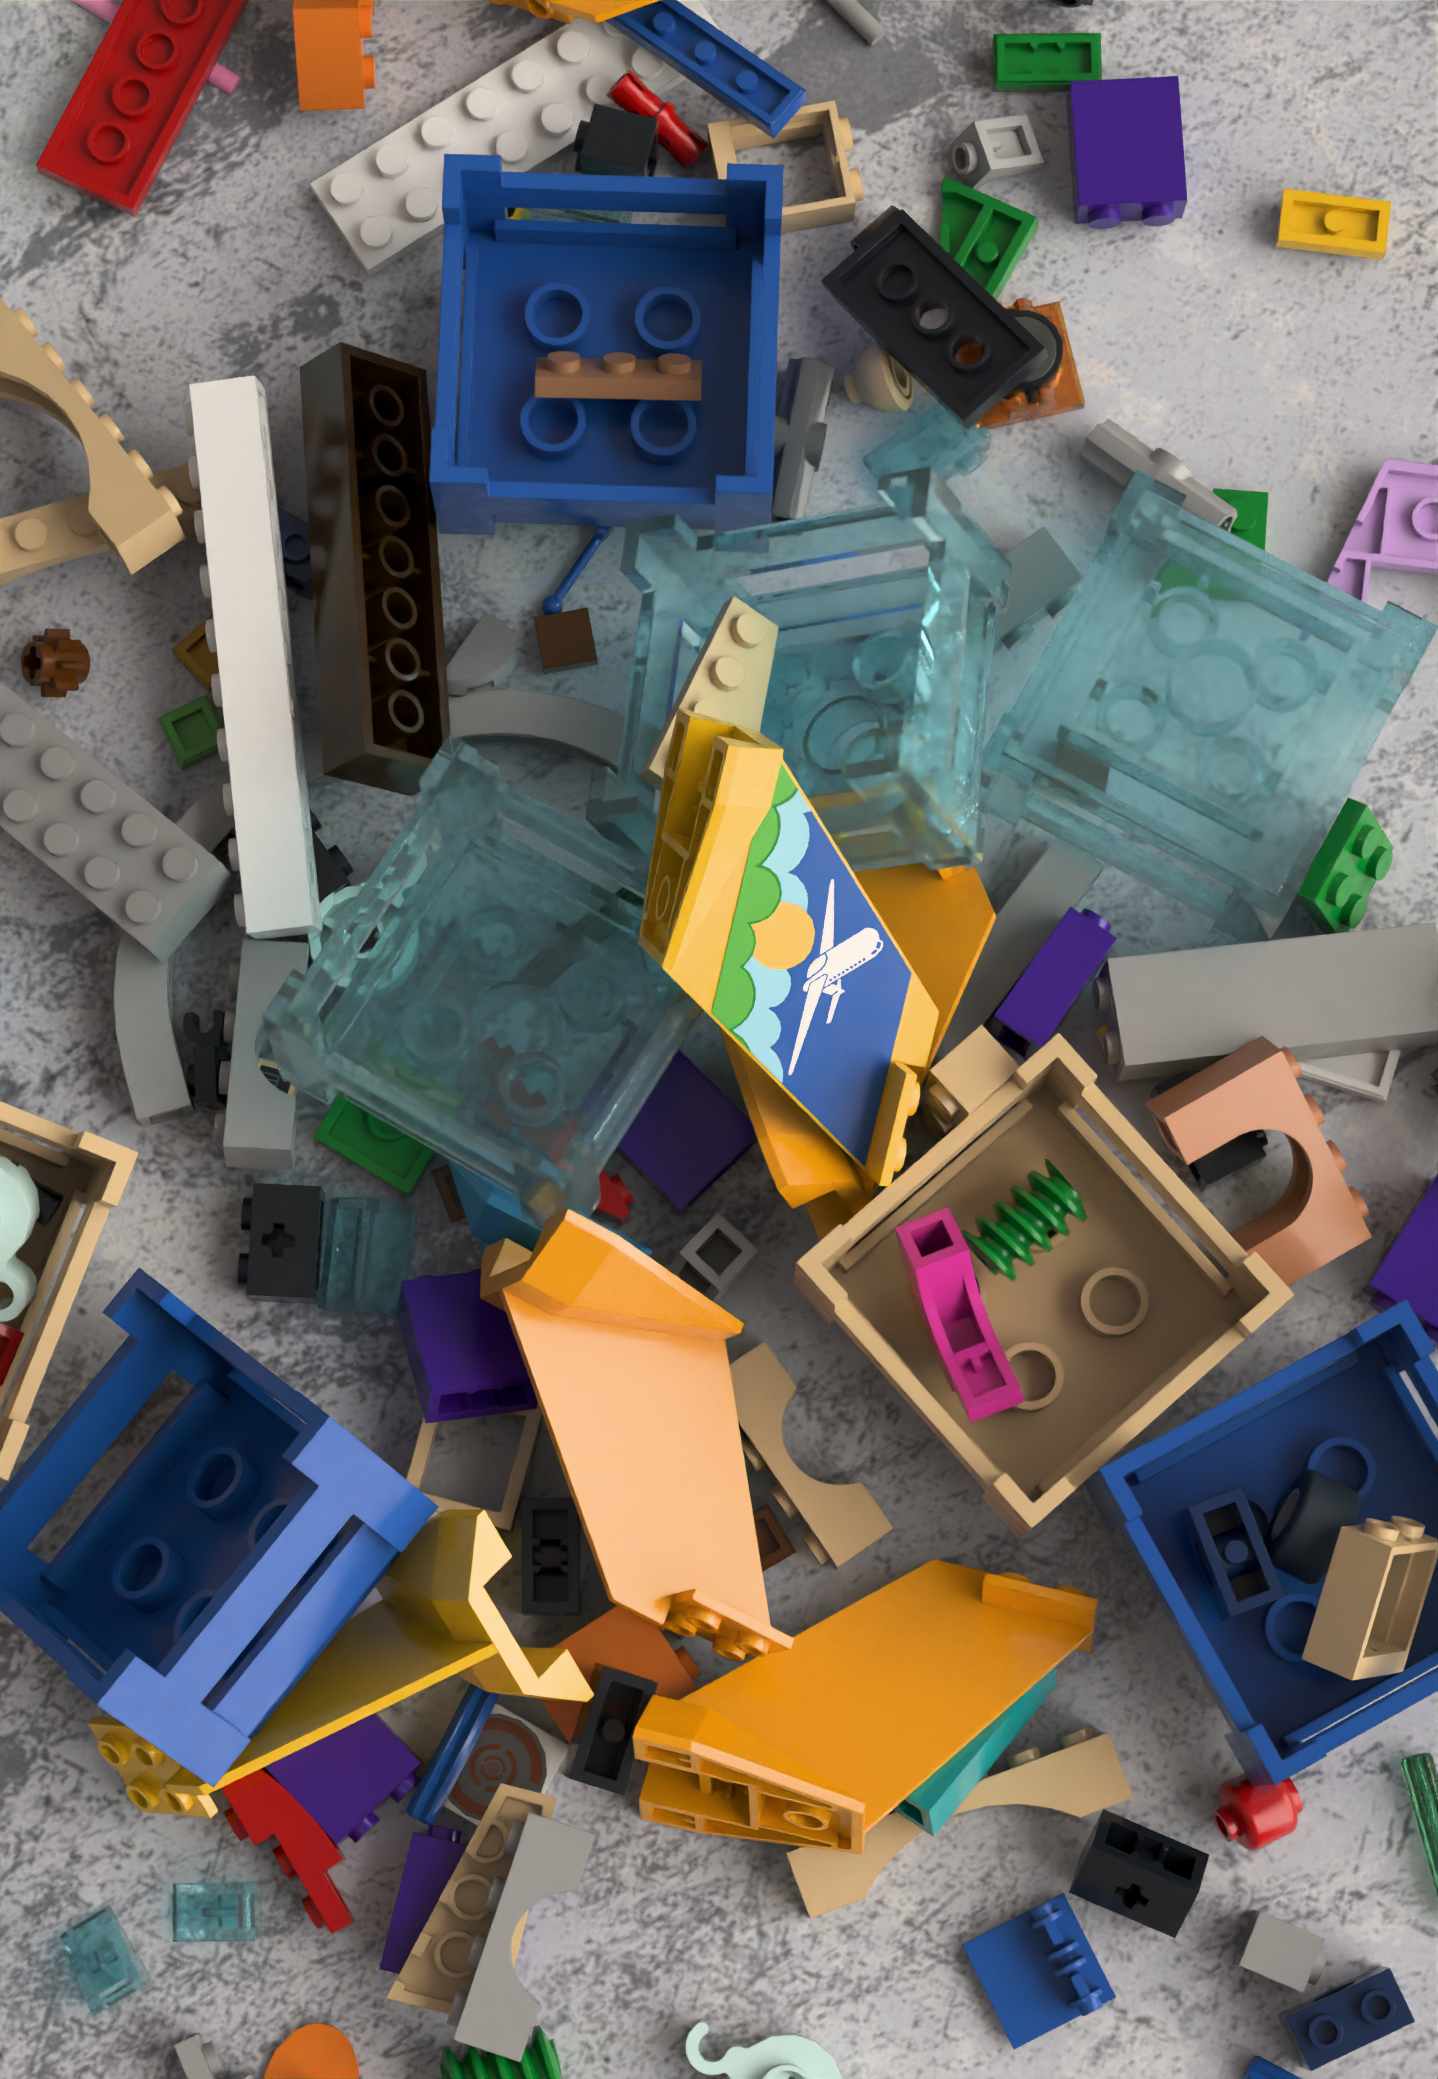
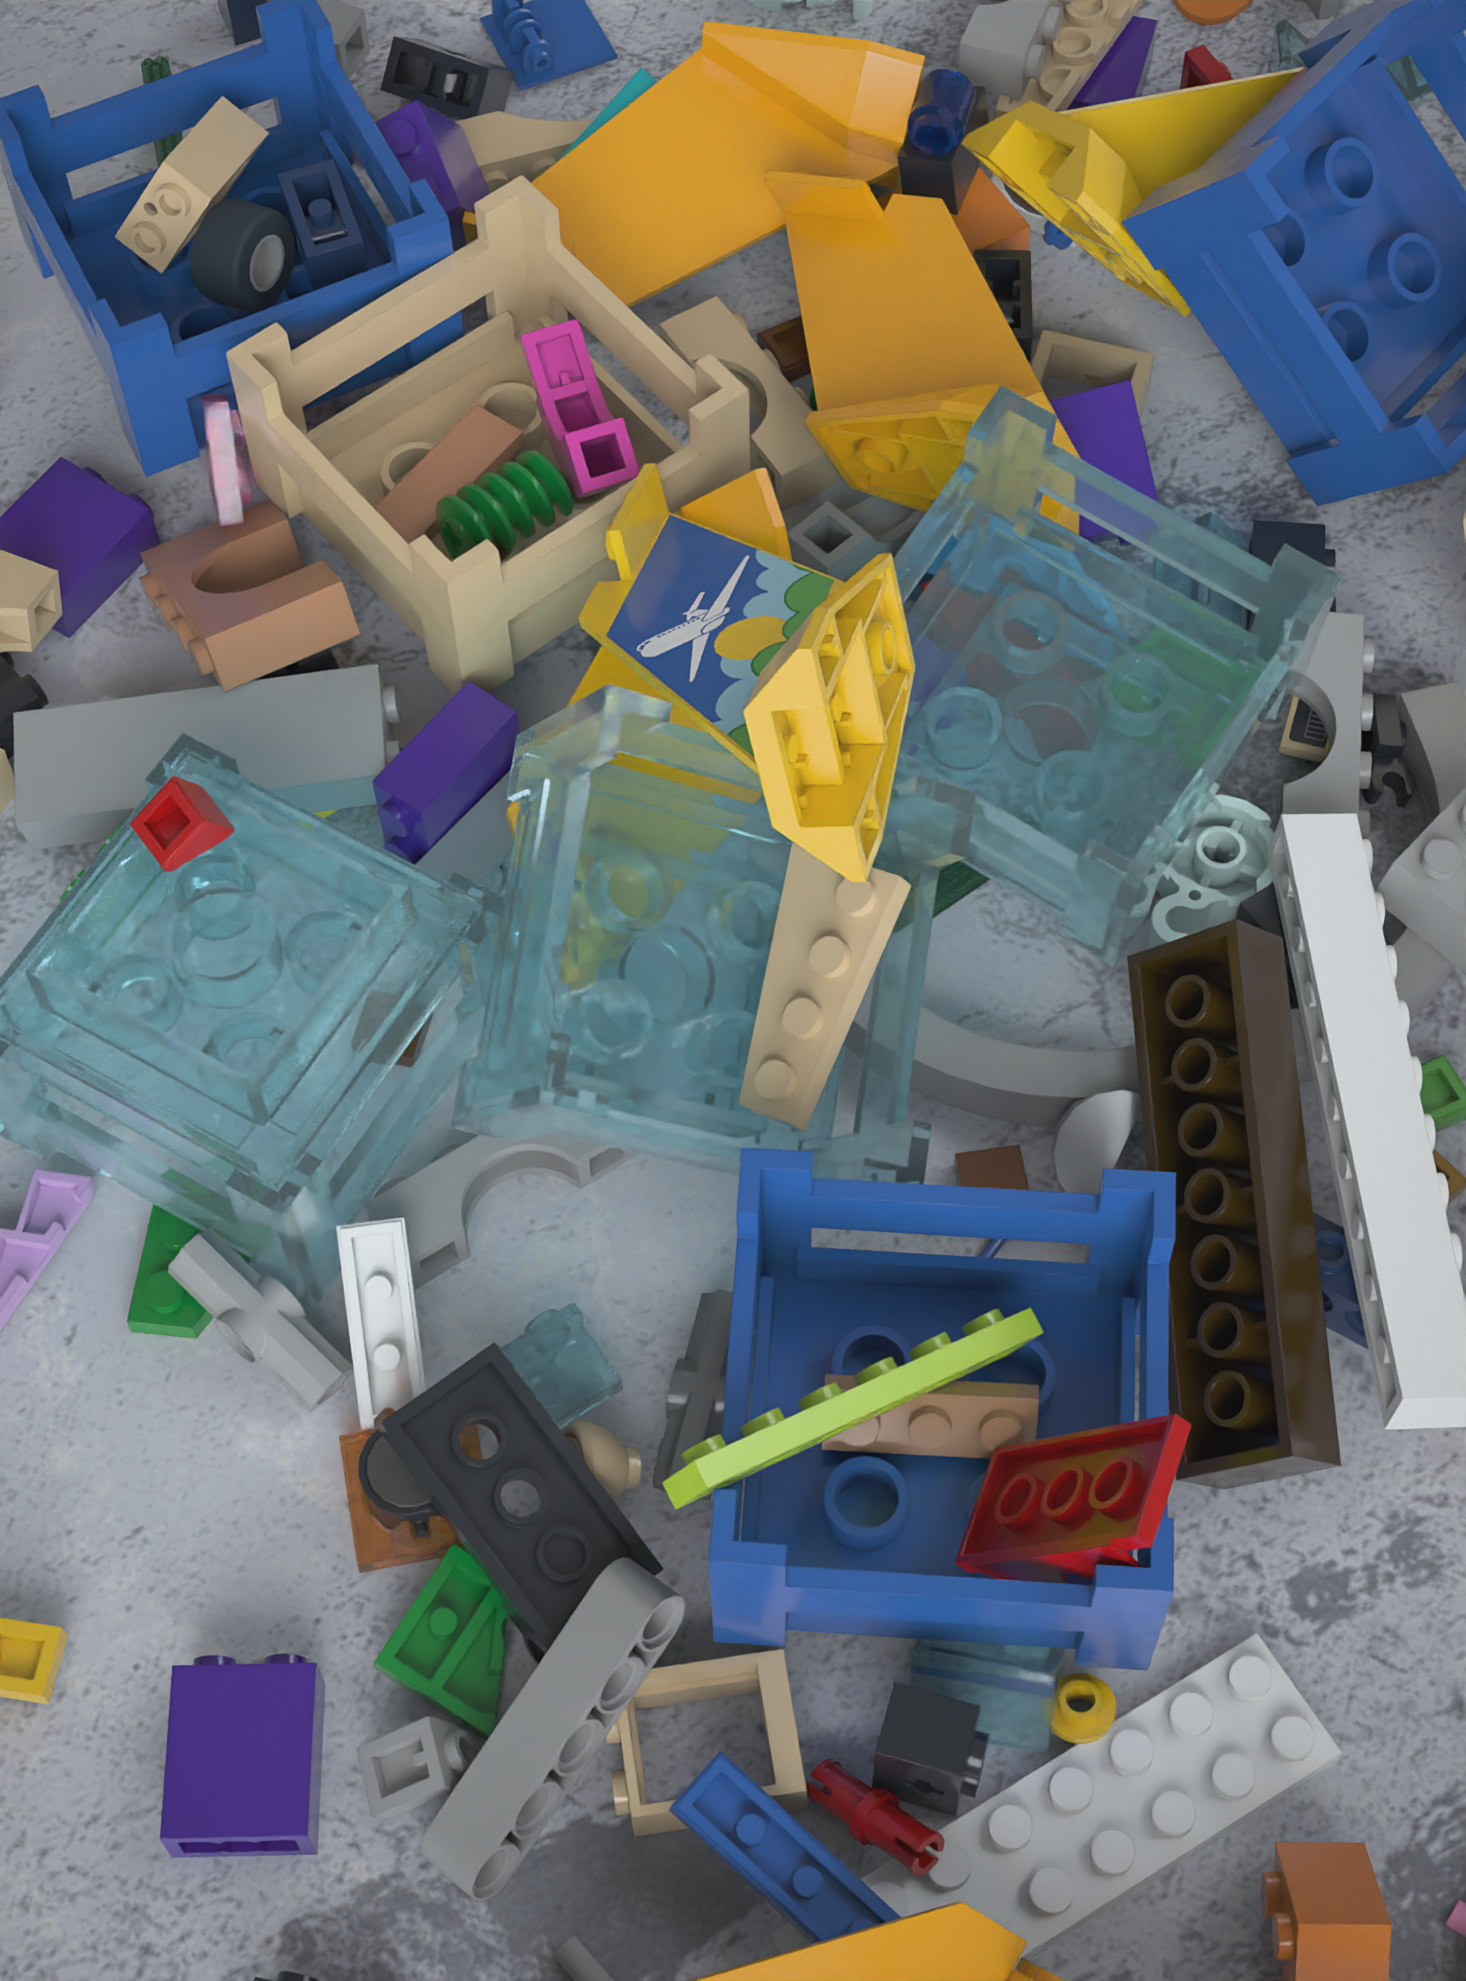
camera: 175 degrees left, 20 degrees down
(514, 258) = (1073, 1501): none -> red piece
(613, 1712) = (941, 111): none -> clear blue brick
(677, 325) = (831, 1412): none -> lime plate
(895, 159) = (553, 1728): none -> light grey beam
(964, 1081) = (542, 599): tan arch -> none
(1044, 61) = (336, 1894): green plate -> none
(1058, 482) = (381, 1315): none -> white tile
(1084, 1273) = (463, 455): none -> nougat tile
(1131, 1676) = (439, 152): none -> dark purple brick
(1258, 769) = (181, 823): none -> red slope
(1300, 1314) = (226, 472): none -> clear pink plate

